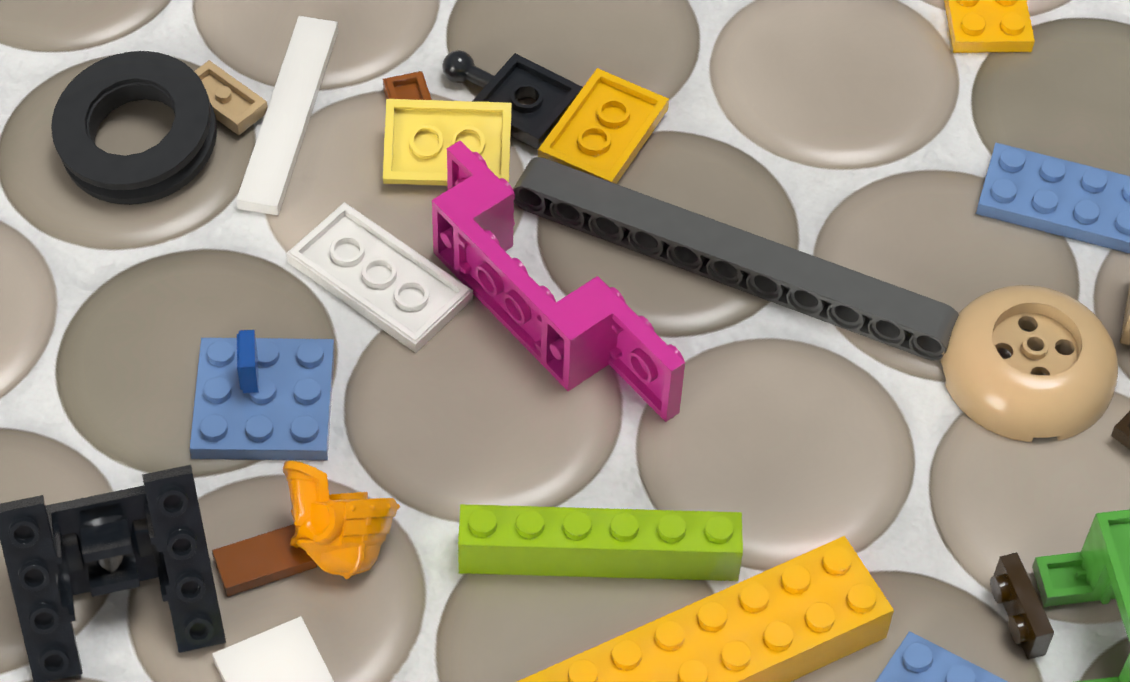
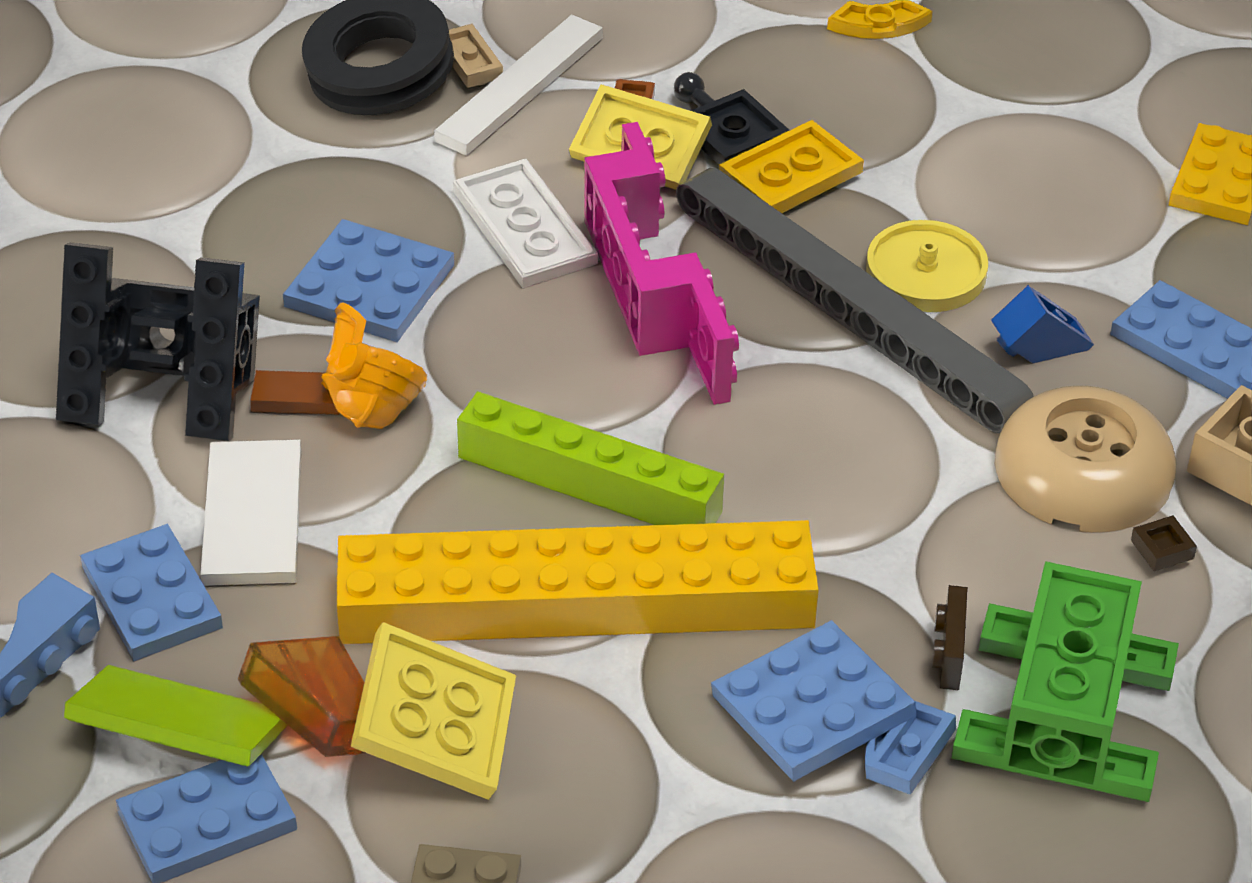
camera: 25 degrees right, 10 degrees down
(247, 361) = (363, 237): blue tile -> none
(781, 194) = (929, 264): none -> light yellow piece
(921, 236) = (1039, 328): none -> blue slope

